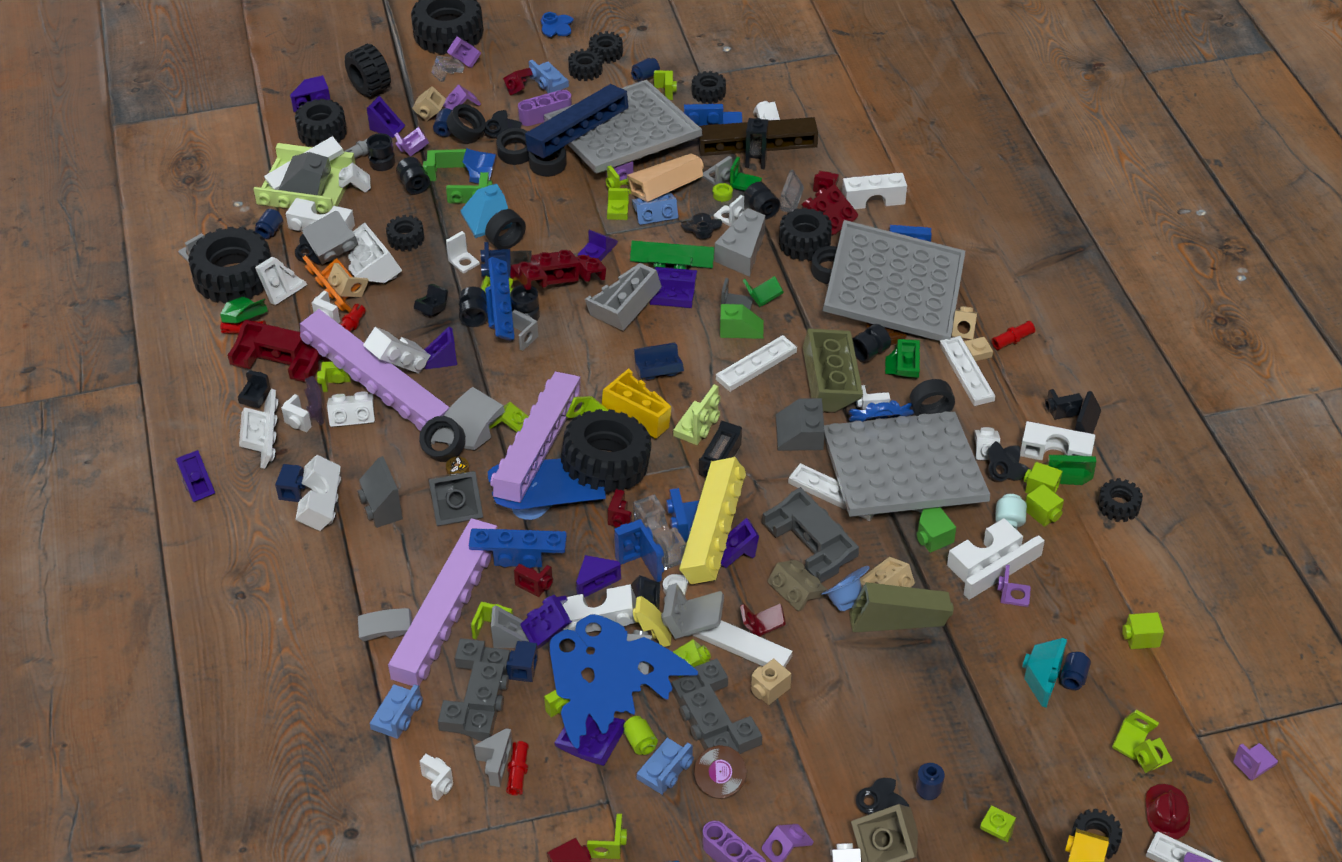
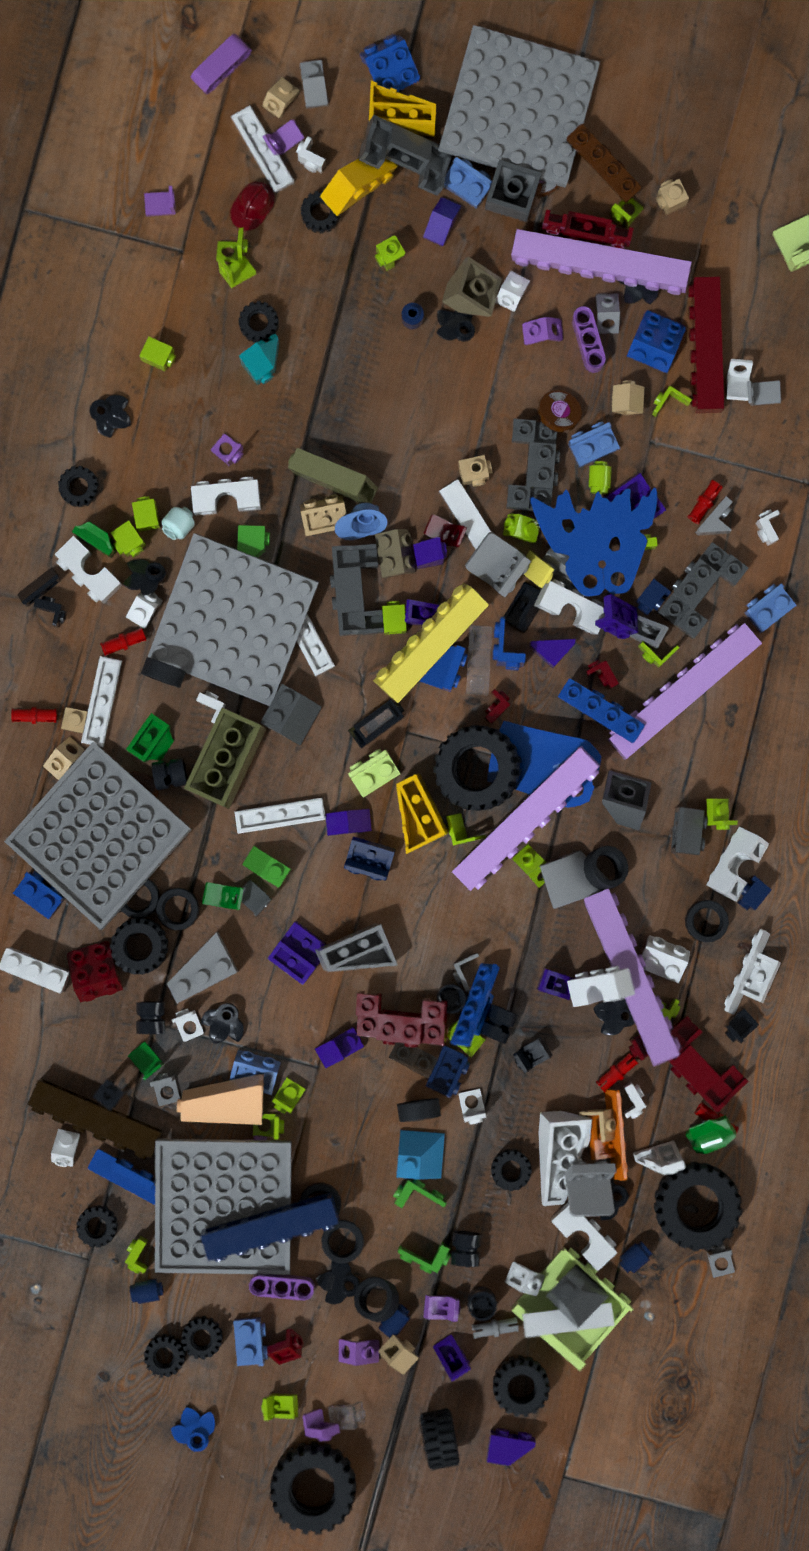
camera: 150 degrees left, 40 degrees up
(295, 415) = (718, 970): white bracket -> none
(315, 403) = (693, 976): clear purple slope -> none
(325, 435) = (689, 921): none -> black tyre
(356, 523) = (719, 814): none -> lime bracket
(385, 622) = (742, 694): light grey slope -> none
(457, 465) = (604, 836): tile -> none
(478, 162) = (391, 1232): blue slope -> none
(501, 54) = (280, 1406): none -> lime bracket
(656, 816) = (628, 398): none -> tan brick
(672, 254) = (280, 991): green bracket -> none
(676, 578) = (494, 609): white tile -> none
(693, 381) = (348, 822): none -> dark purple slope
(722, 192) = (175, 1060): lime tile -> none
(763, 590) = (430, 553): none -> dark purple slope
(766, 530) = (394, 618): none -> lime brick
(791, 192) = (112, 1017): clear slope -> none
(796, 260) = (160, 909): none -> black tyre
(824, 180) = (69, 1016): dark red bracket -> none
(880, 410) = (201, 682): blue piece -> none
(984, 412) = (123, 641): none -> red pin
(1016, 559) = (222, 473): white tile -> none
(1071, 717) = (258, 308): none -> black tyre
(1075, 670) = (234, 348): dark blue brick -> none
(1139, 566) = (113, 415): none -> black plate

